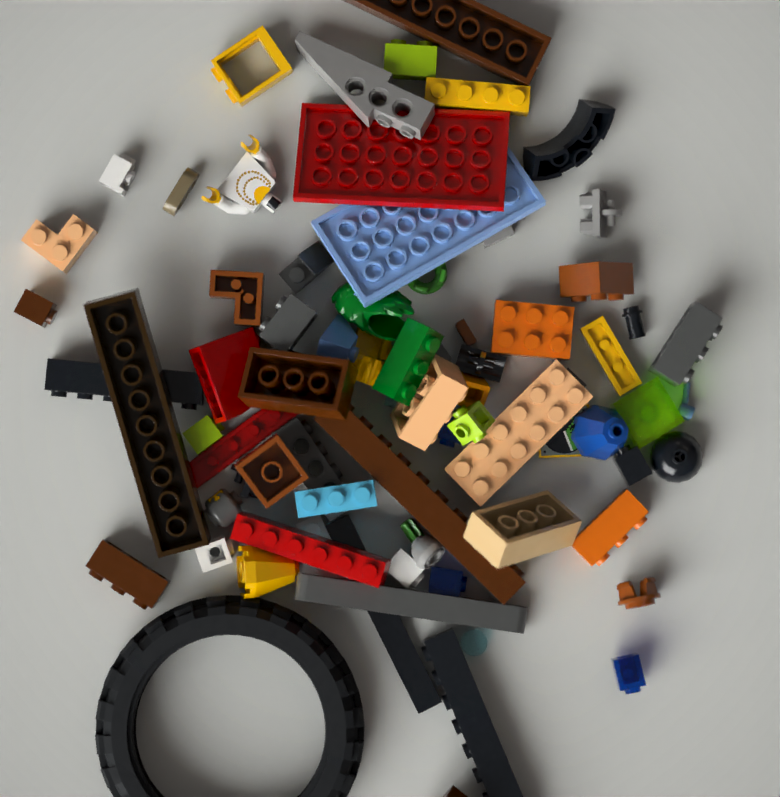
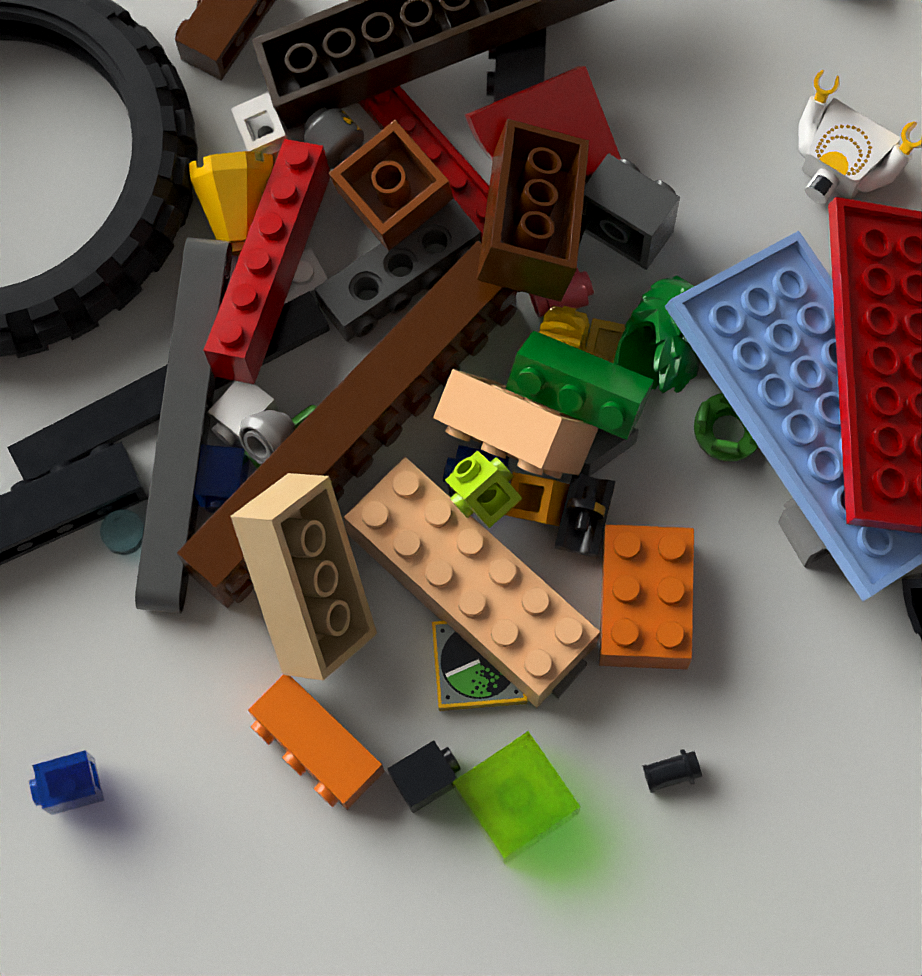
camera: 90 degrees right, 15 degrees down
(181, 191) = (823, 53): dark tan beam -> none
(204, 434) = (446, 103): lime brick -> none
(245, 289) = (680, 147): dark orange brick -> none
(306, 267) = (718, 240): dark grey slope -> none
(335, 499) = (349, 285): medium azure brick -> none
(339, 341) = (604, 279): medium blue slope -> none
(465, 332) = (634, 491): reddish brown tile -> none
(596, 281) = (742, 700): dark orange brick -> none
(599, 432) = (474, 696): blue cone -> none
(602, 213) = (855, 704): light grey hips -> none
(610, 356) = (611, 733): yellow plate -> none
(647, 596) = (194, 778): dark orange piece -> none
(664, 461) = (442, 878): black cylinder -> none
(686, 345) = (639, 856): dark grey brick -> none
(686, 410) = (524, 866): hand -> none

